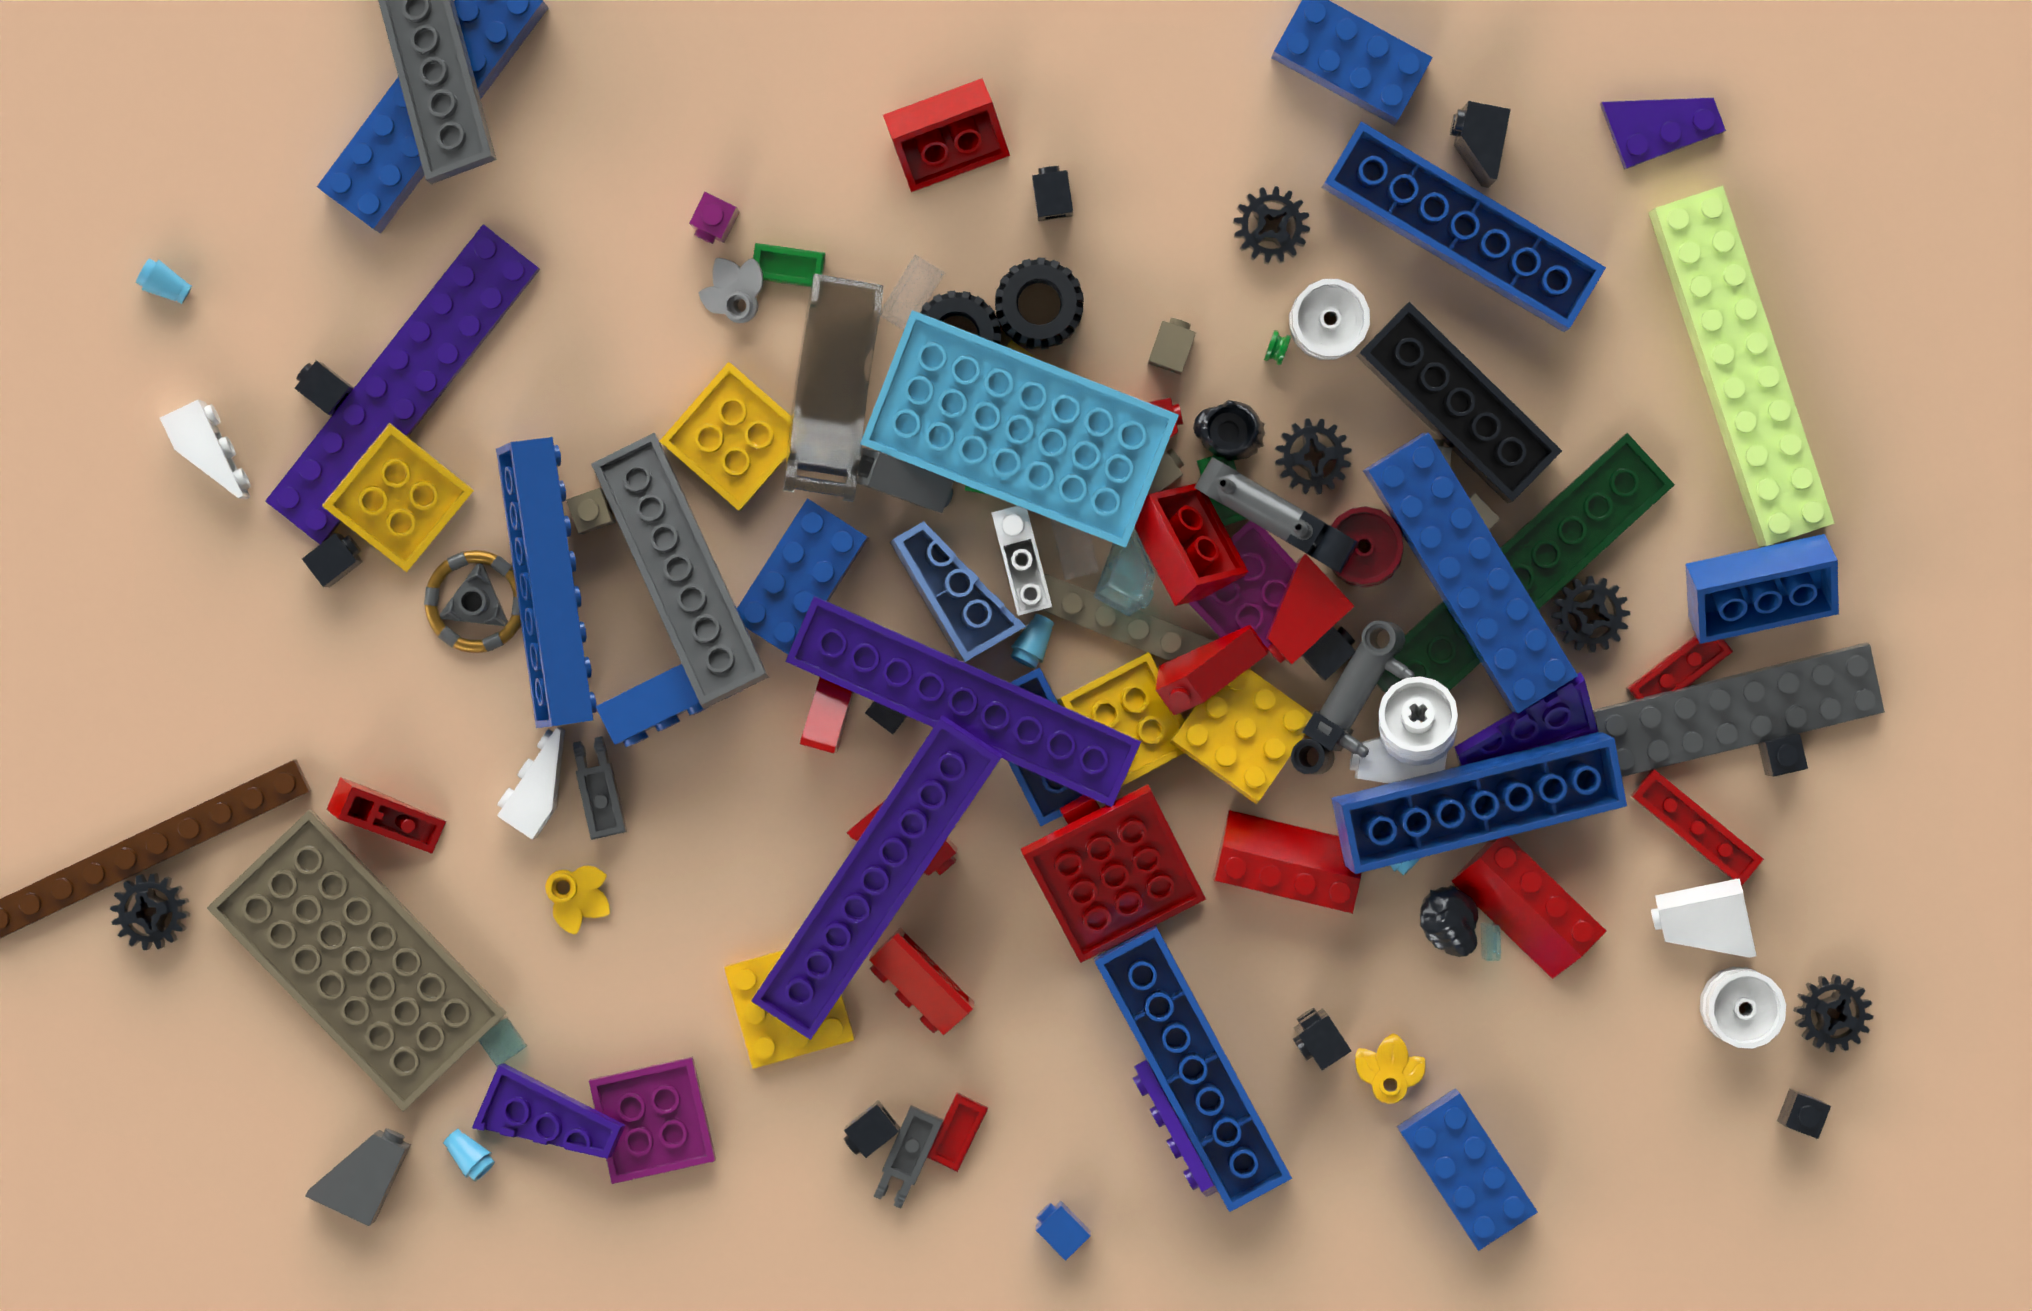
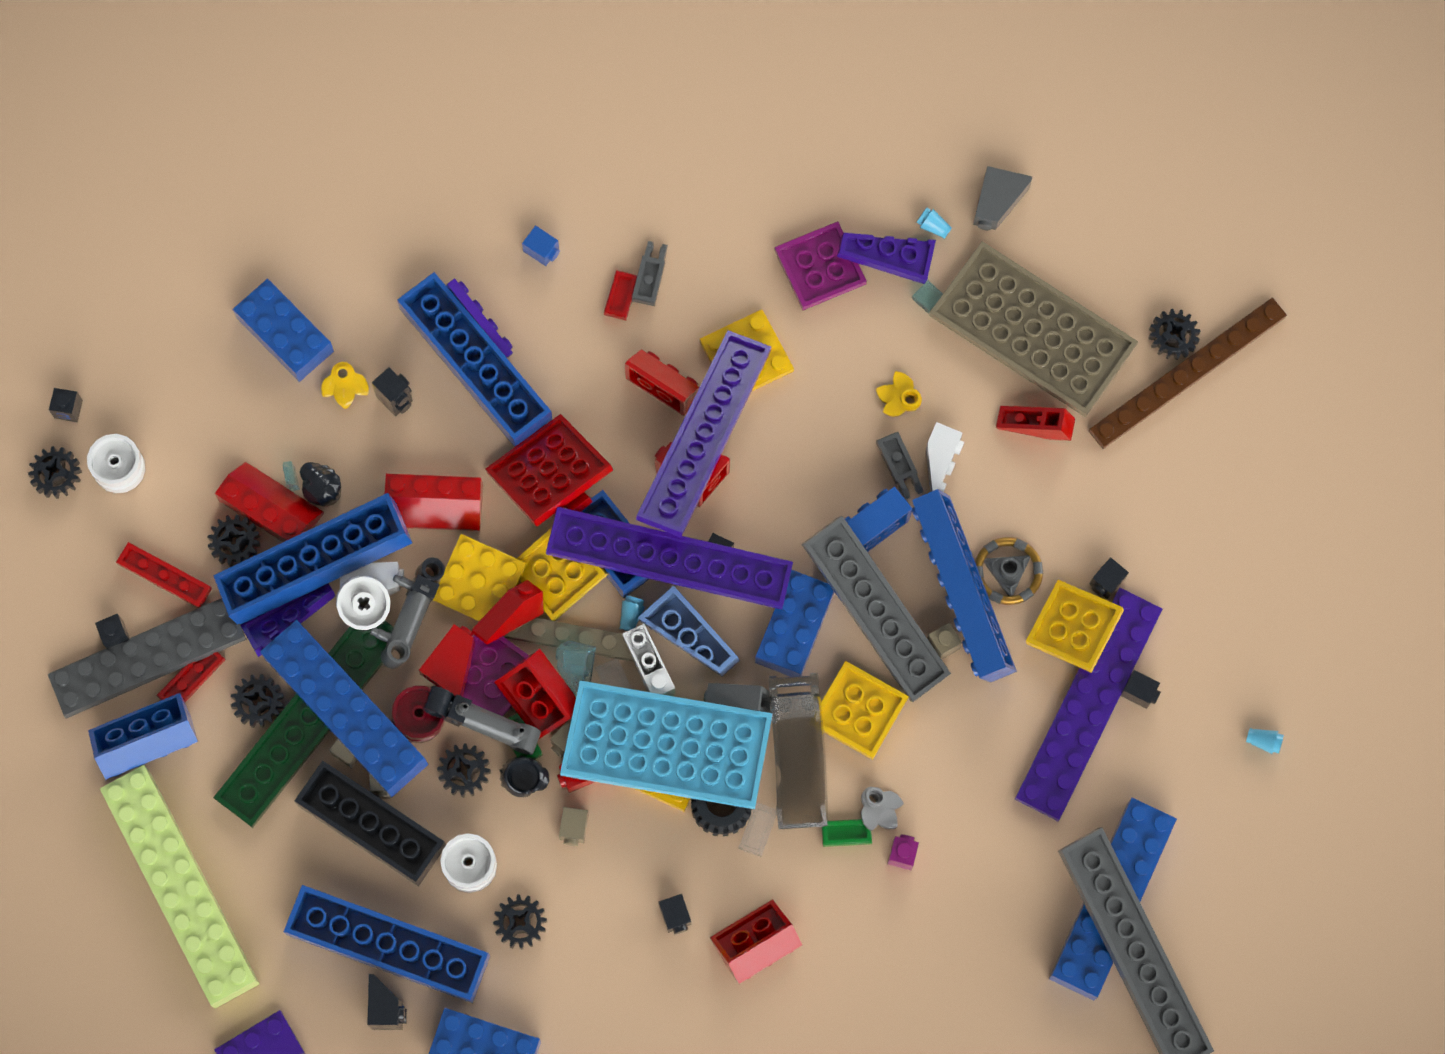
camera: 160 degrees right, 15 degrees down
(198, 439) = (1214, 637): white slope -> none
(827, 716) = (759, 530): slope -> none
(870, 1130) = (677, 284): black brick -> none
(1030, 273) = (663, 816): black tyre -> none
(1277, 348) = (501, 839): green bush -> none
(1330, 652) = (428, 641): black brick -> none
(1588, 875) = (224, 542): none -> black gear
(1706, 918) = (148, 515): white slope -> none

